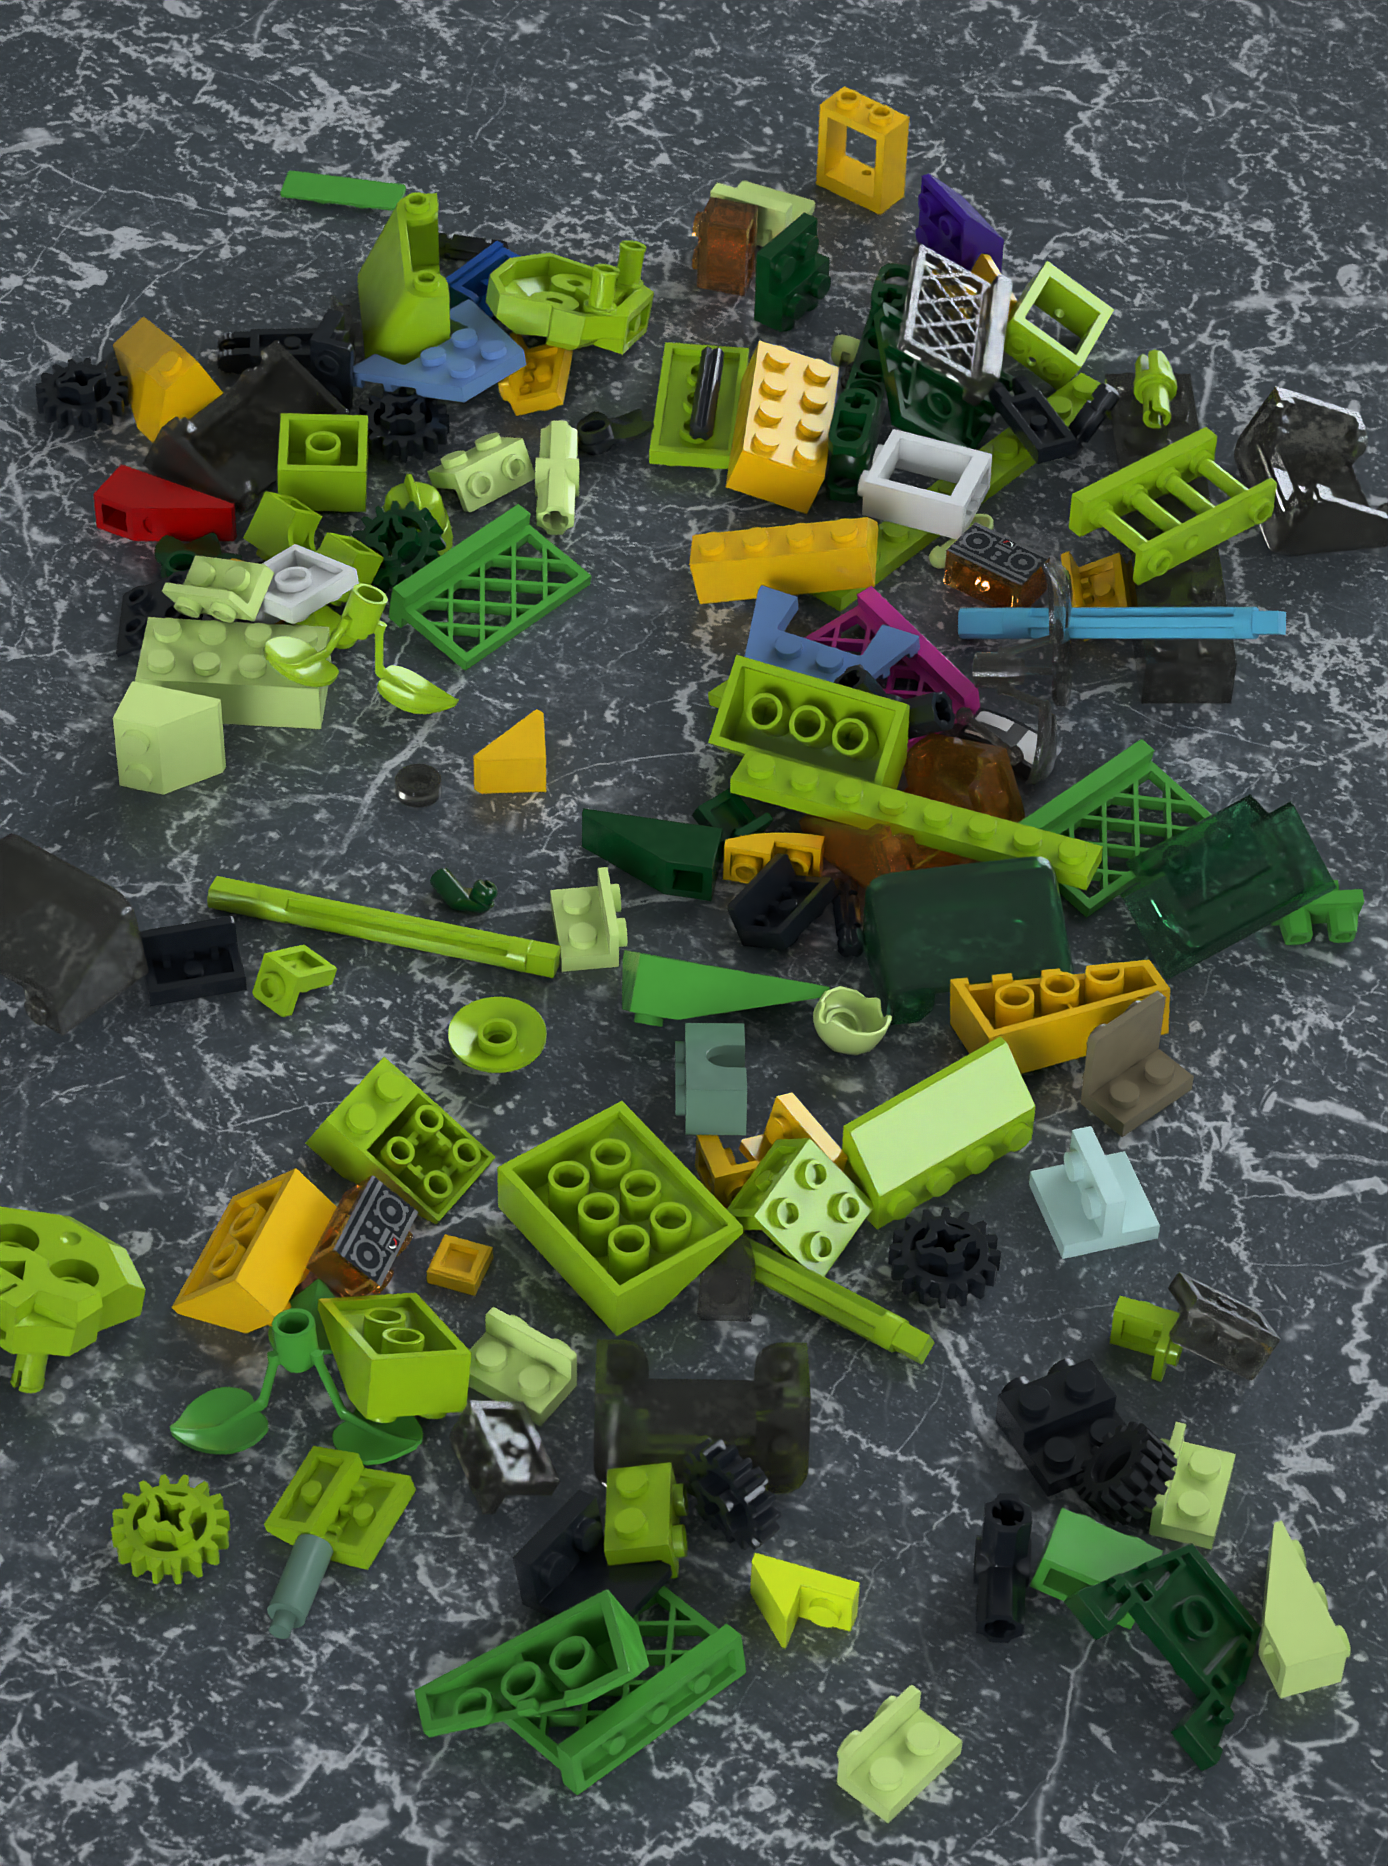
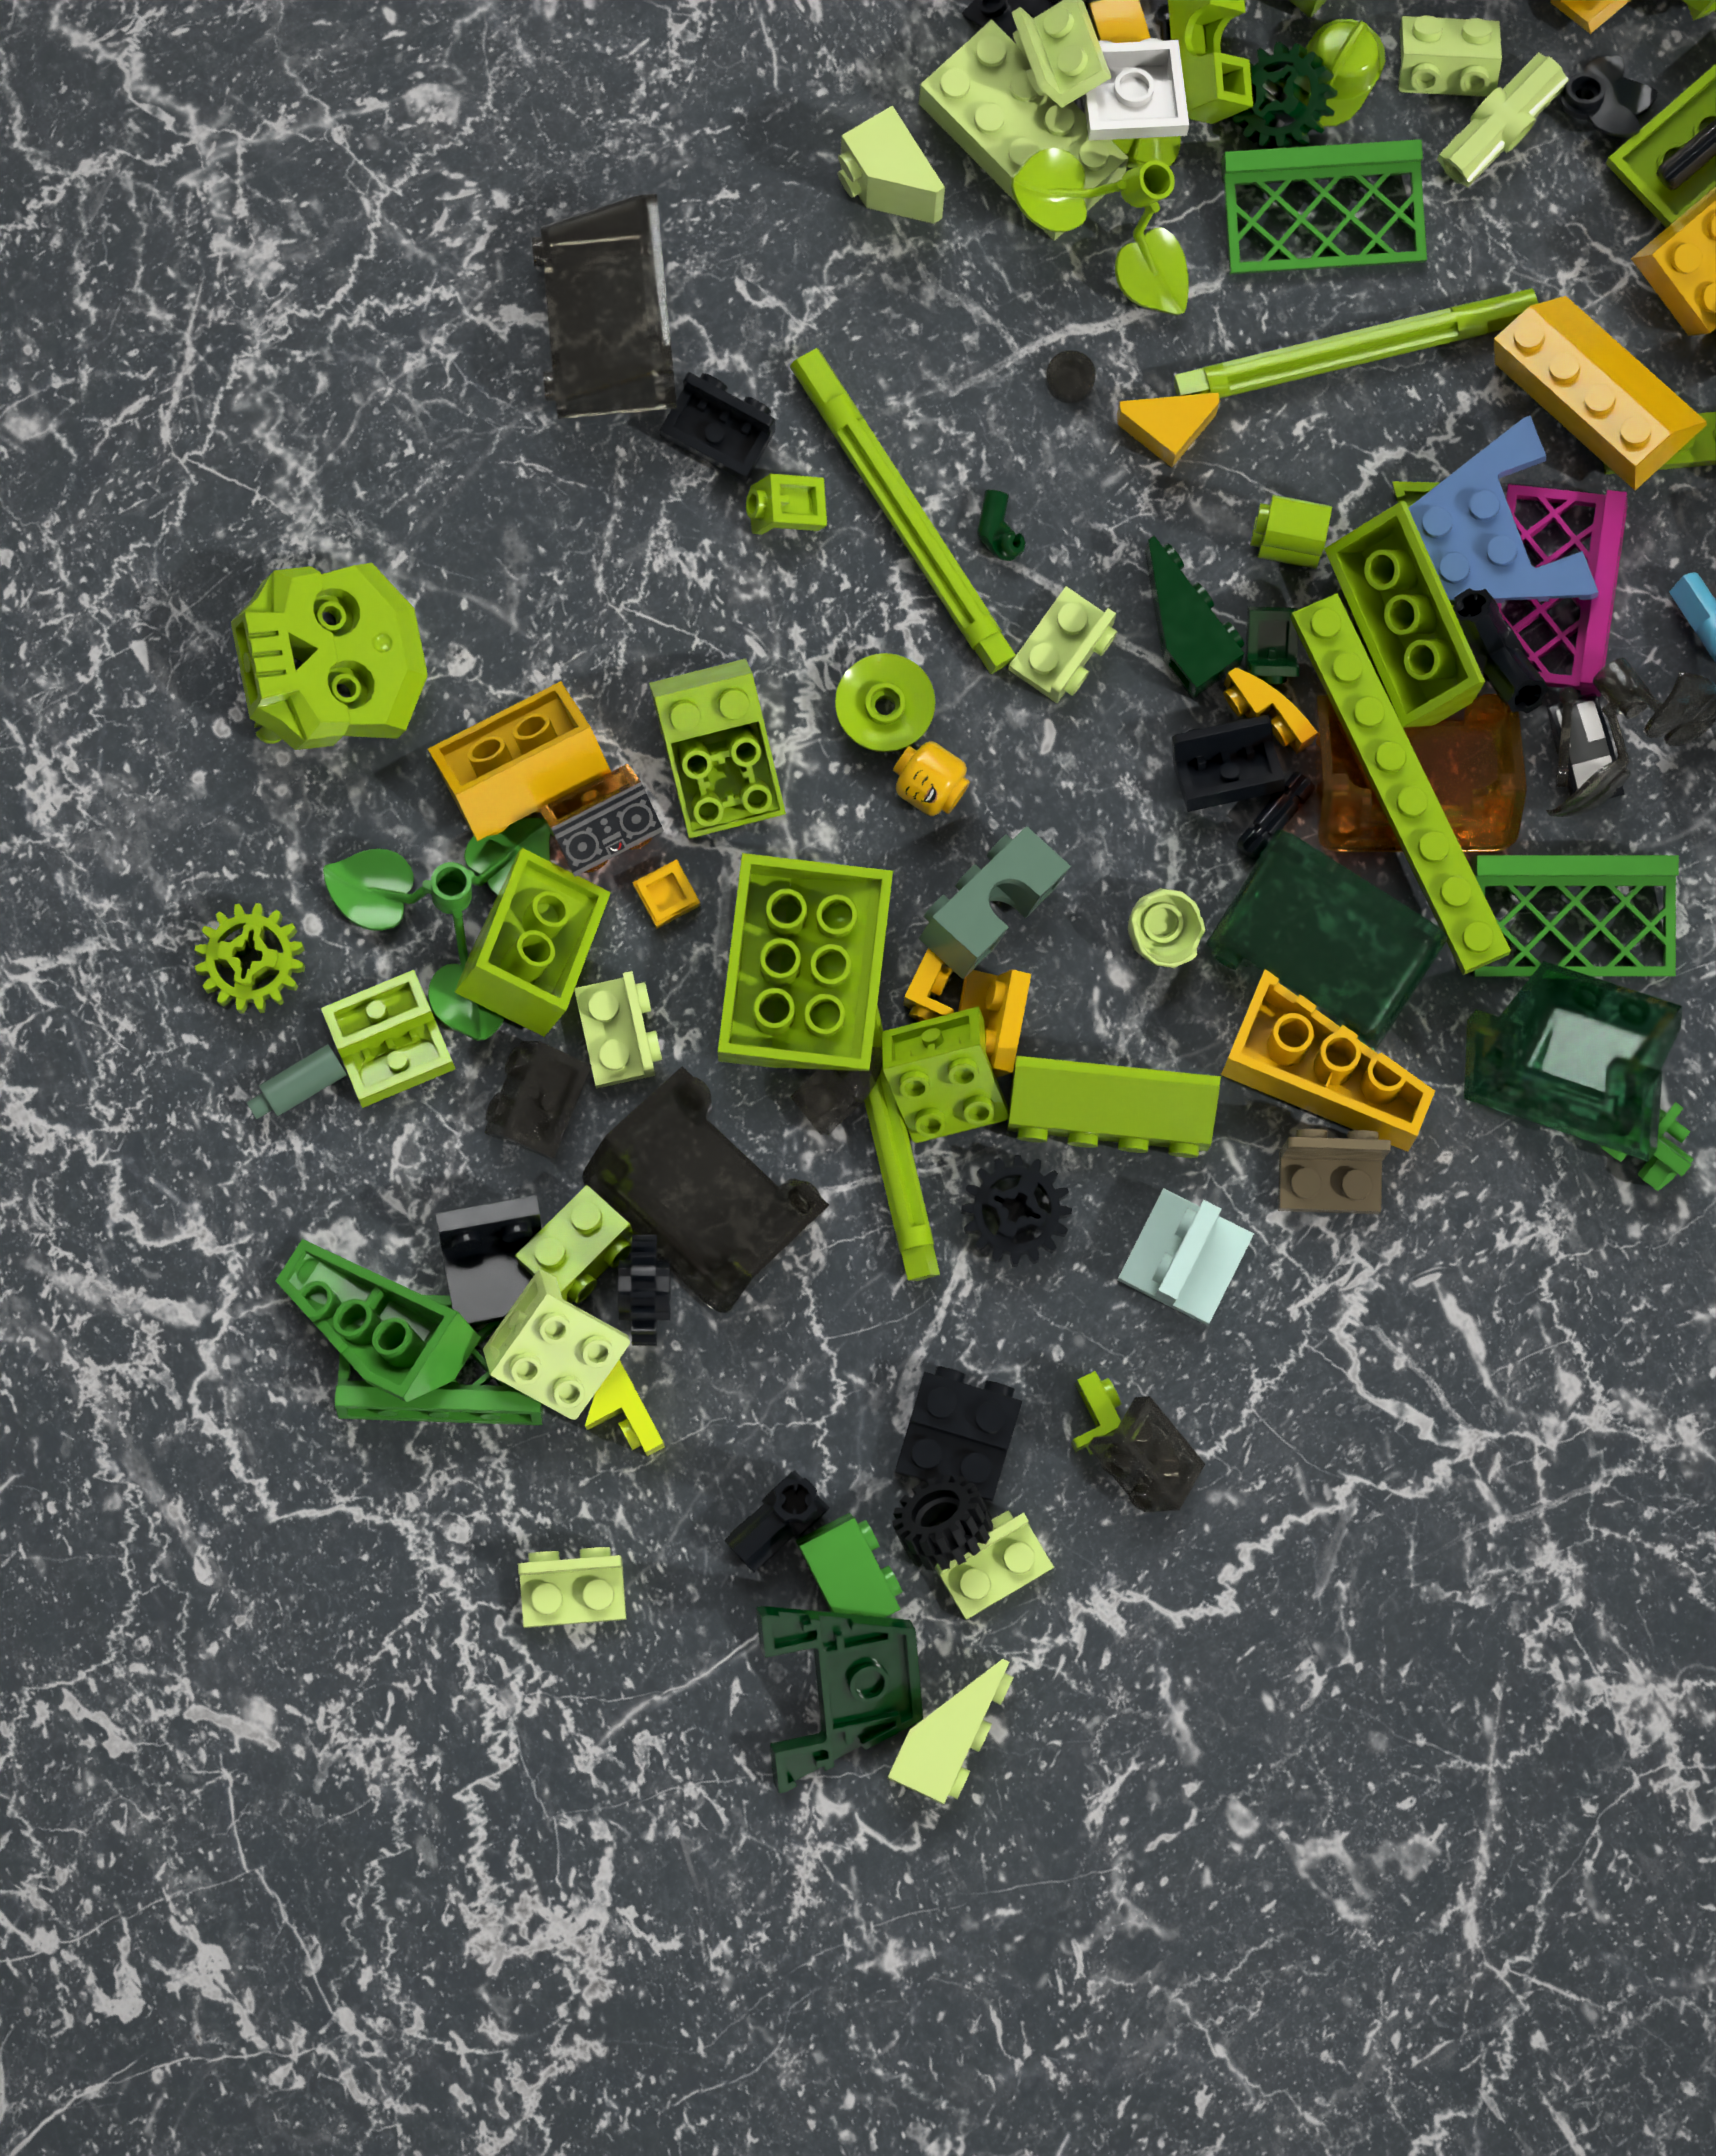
camera: 40 degrees right, 35 degrees up
(582, 1051) = (931, 778): none -> yellow head
(605, 637) = (1355, 347): none -> lime piece
(676, 745) = (1291, 531): none -> lime brick
(682, 989) = (1075, 787): bright green wedge -> none
(703, 1574) = (553, 1348): none -> yellowish green bracket

